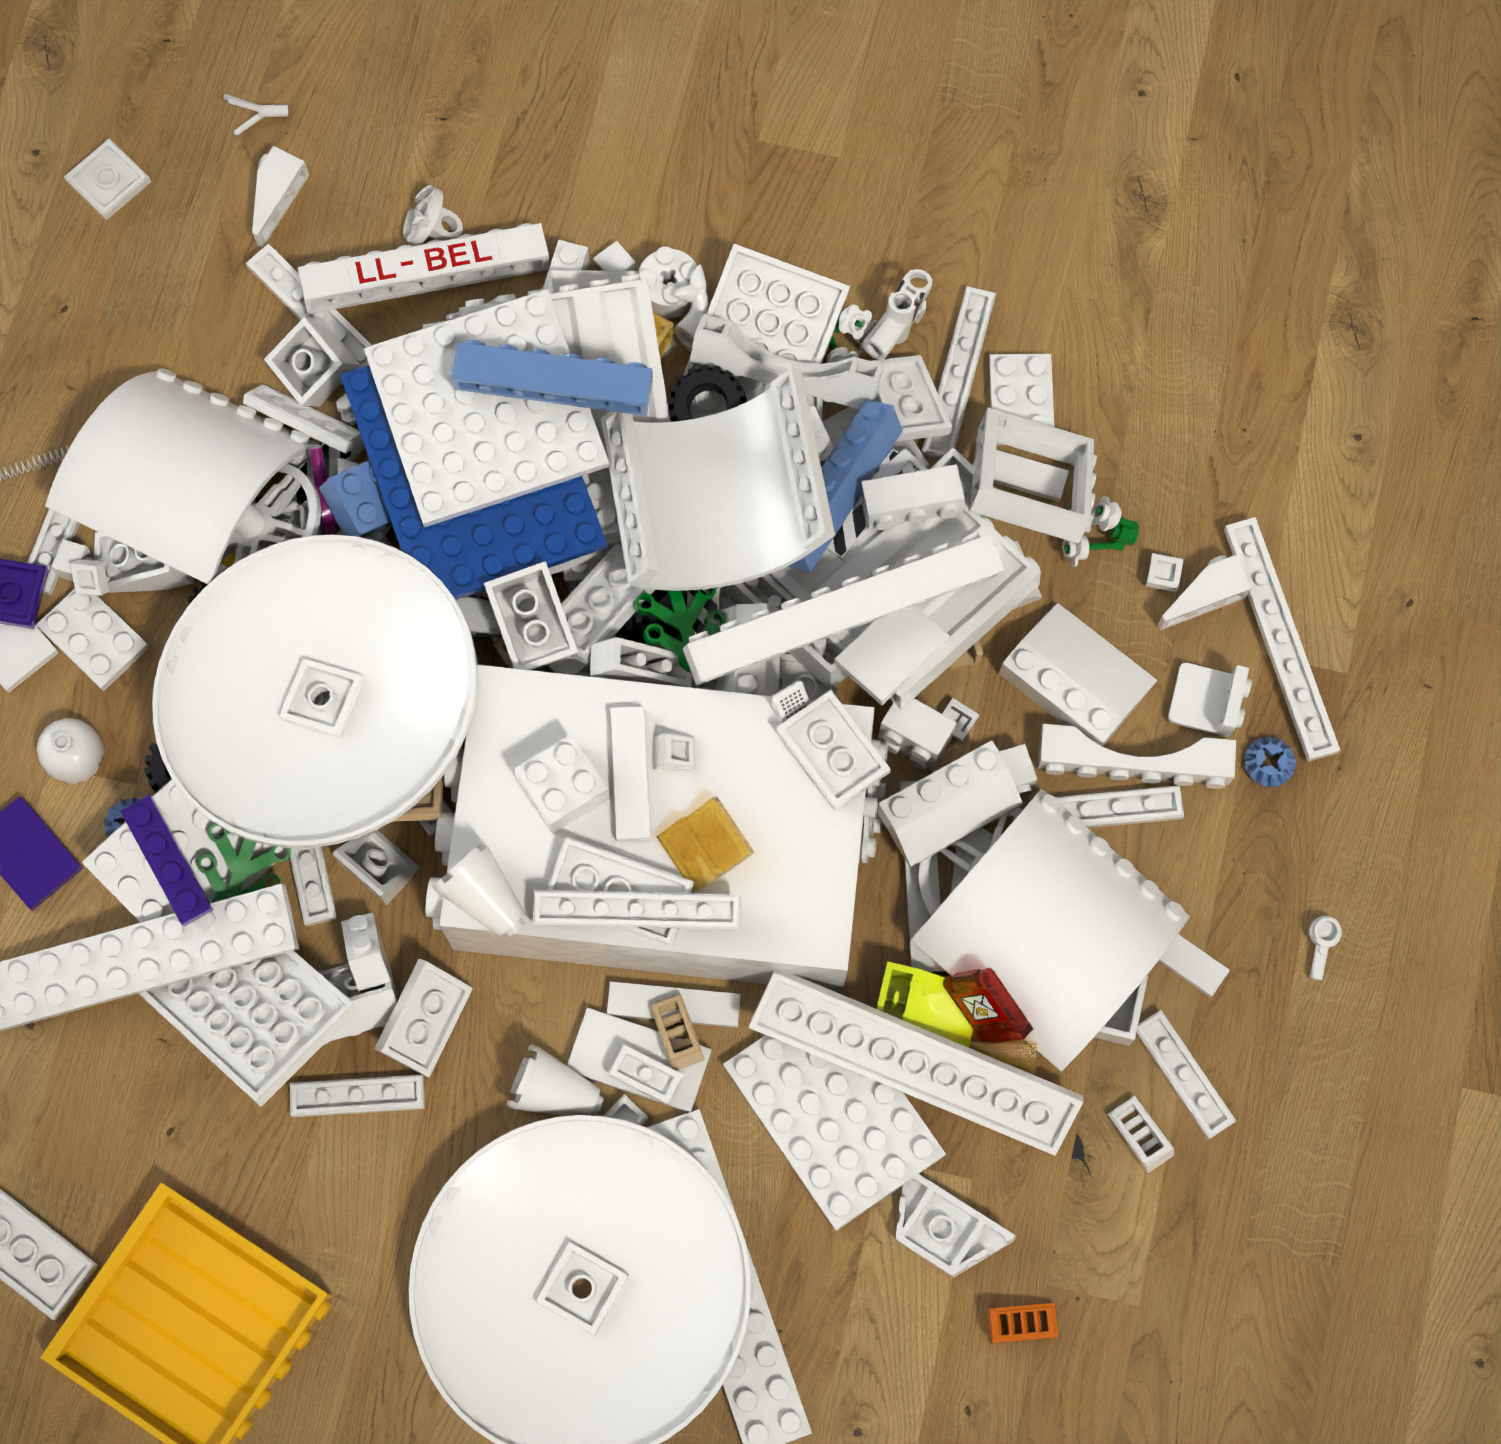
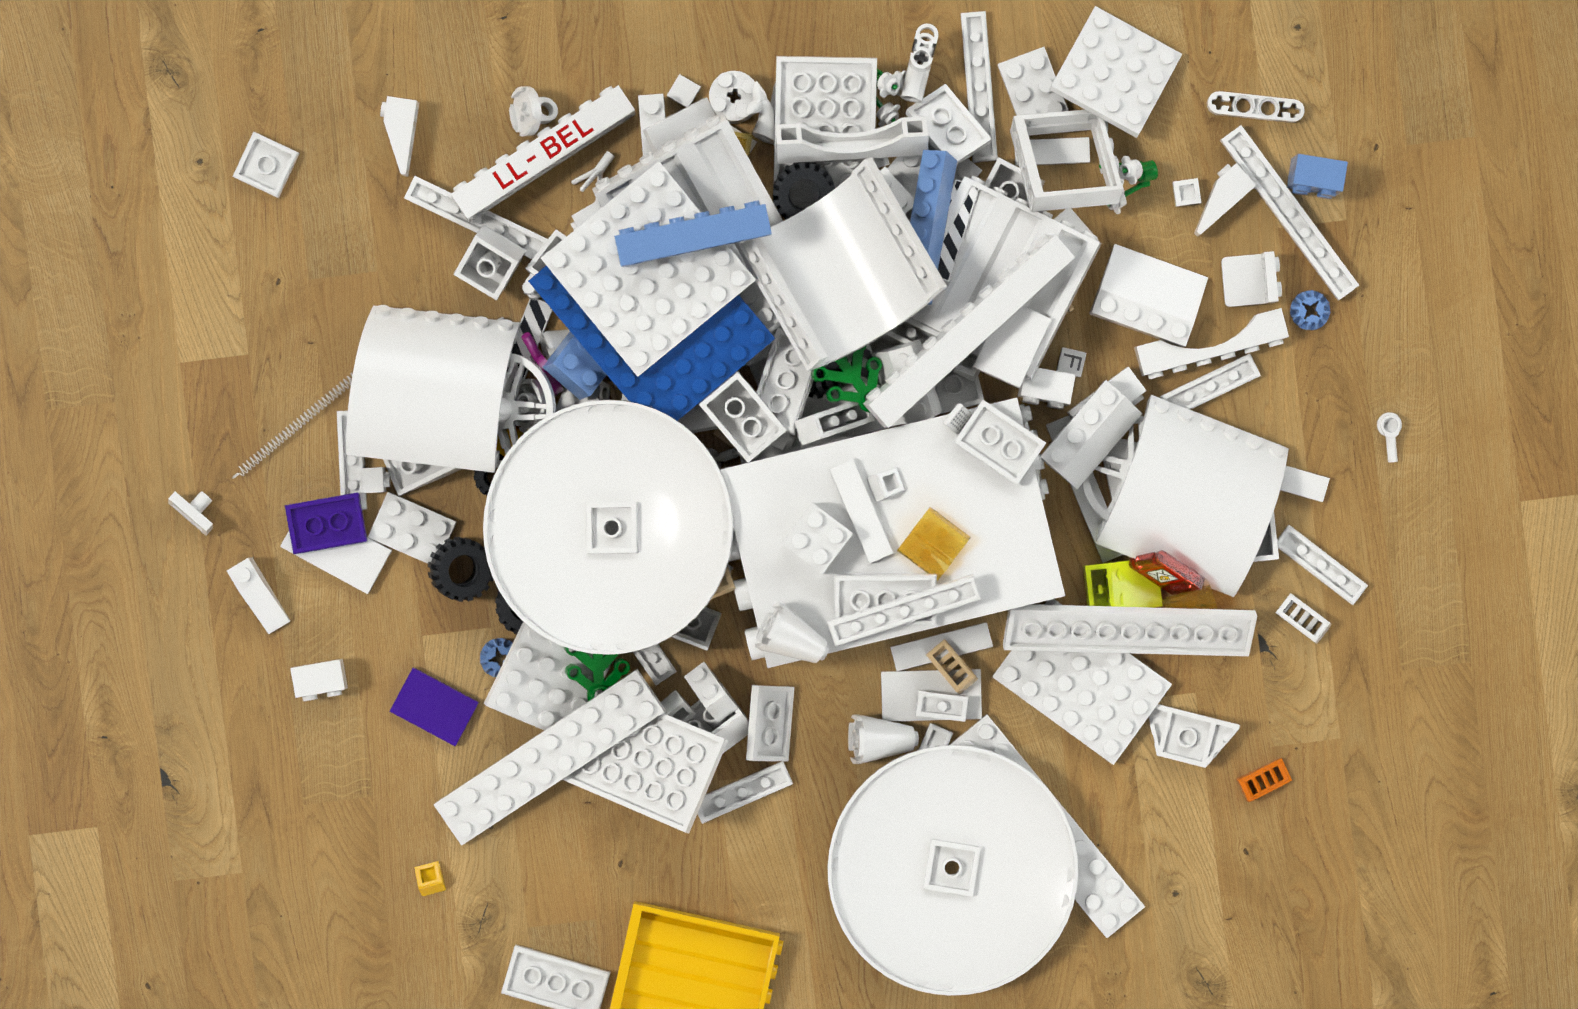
camera: 20 degrees left, 15 degrees up
(70, 750) = (433, 620): white cylinder -> none
(90, 577) = (396, 490): white tile -> none
(97, 691) = (440, 569): none -> black tyre
(166, 860) = (548, 683): dark purple plate -> none
(263, 111) = (354, 65): white plant -> none
(303, 418) = (502, 309): white tile -> none
(318, 956) = (677, 707): none -> white plate
(913, 497) = (986, 218): white brick -> none
(1125, 406) = (1115, 71): none -> white plate
(1276, 511) = (1255, 107): none -> white beam
(1329, 602) = (1316, 175): none -> medium blue brick

